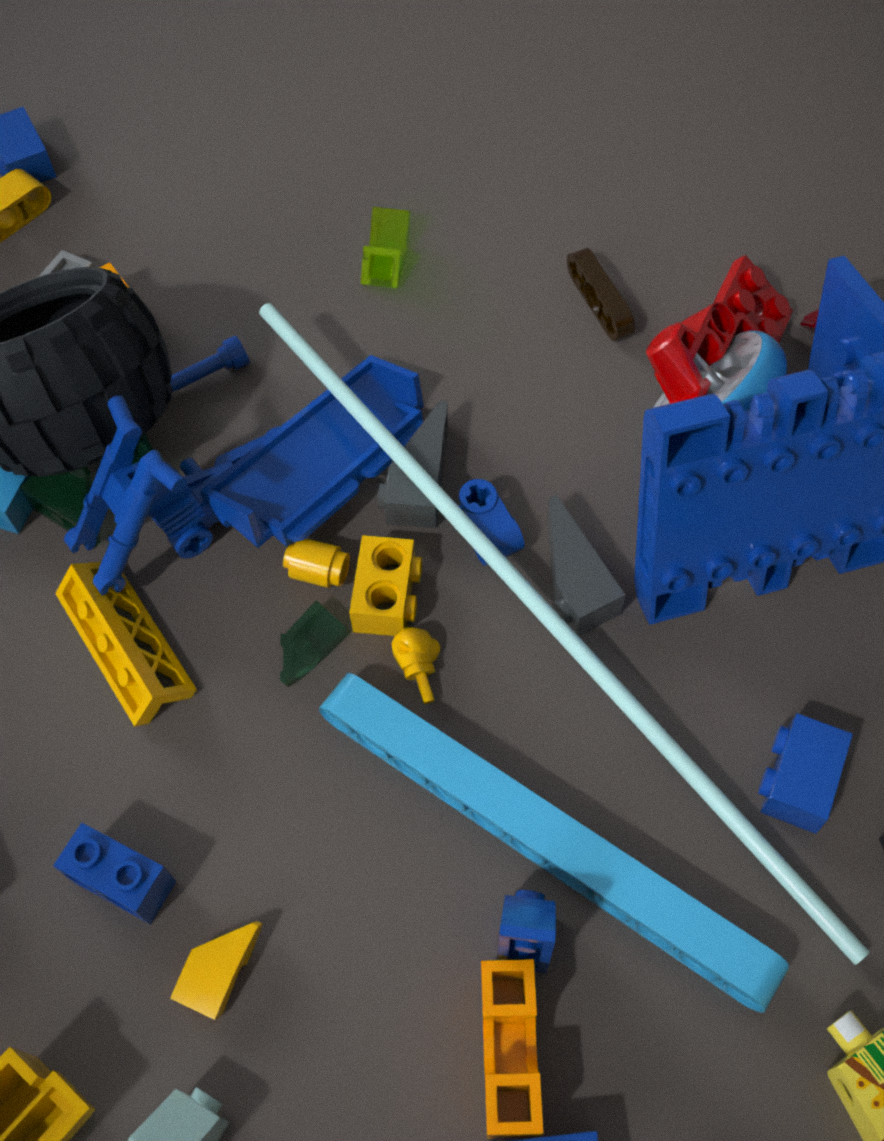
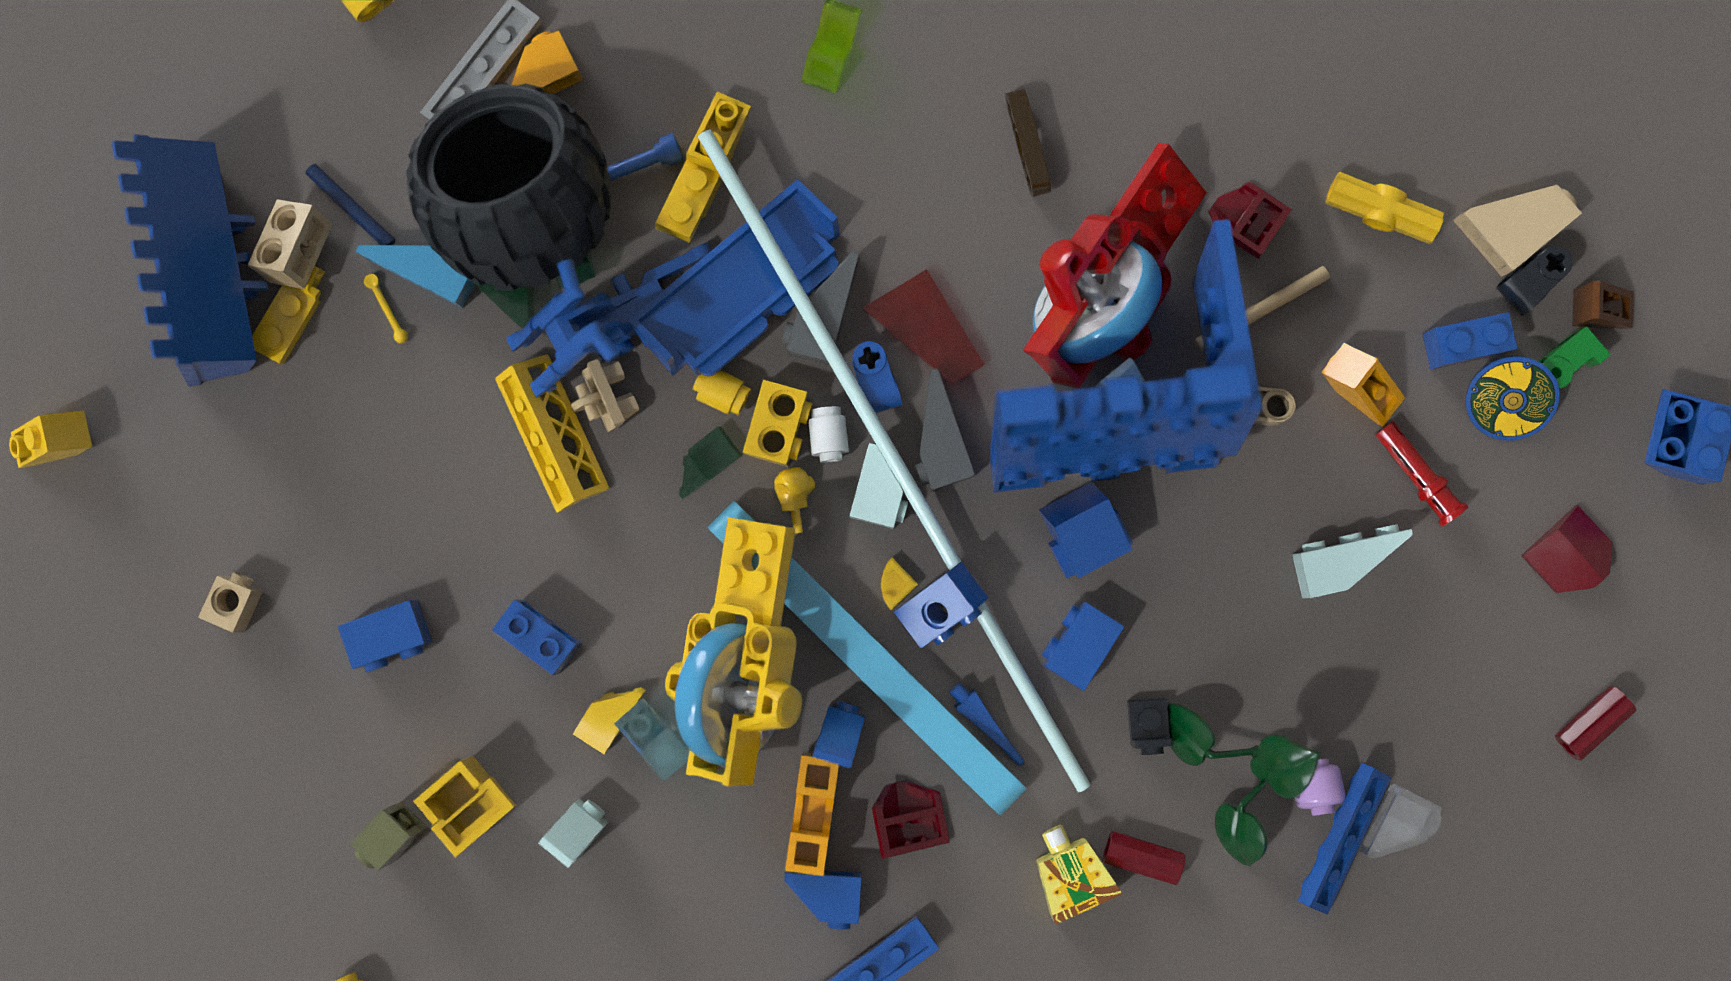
camera: 10 degrees right, 25 degrees up
(175, 590) = (611, 409): none -> tan hips
(269, 367) = (699, 177): none -> yellow slope
(282, 981) = (654, 738): none -> clear light blue slope
(368, 921) = (722, 652): none -> yellow piece
(445, 587) = (828, 434): none -> white brick
(516, 640) = (878, 492): none -> light aqua slope
(534, 468) = (927, 325): none -> clear red wing
(558, 742) = (895, 583): none -> yellow tile
(596, 757) = (955, 591): none -> brick
(643, 1040) = (908, 819): none -> dark red slope
(695, 879) = (973, 708): none -> blue piece
(770, 639) = (1085, 531): none -> blue plate

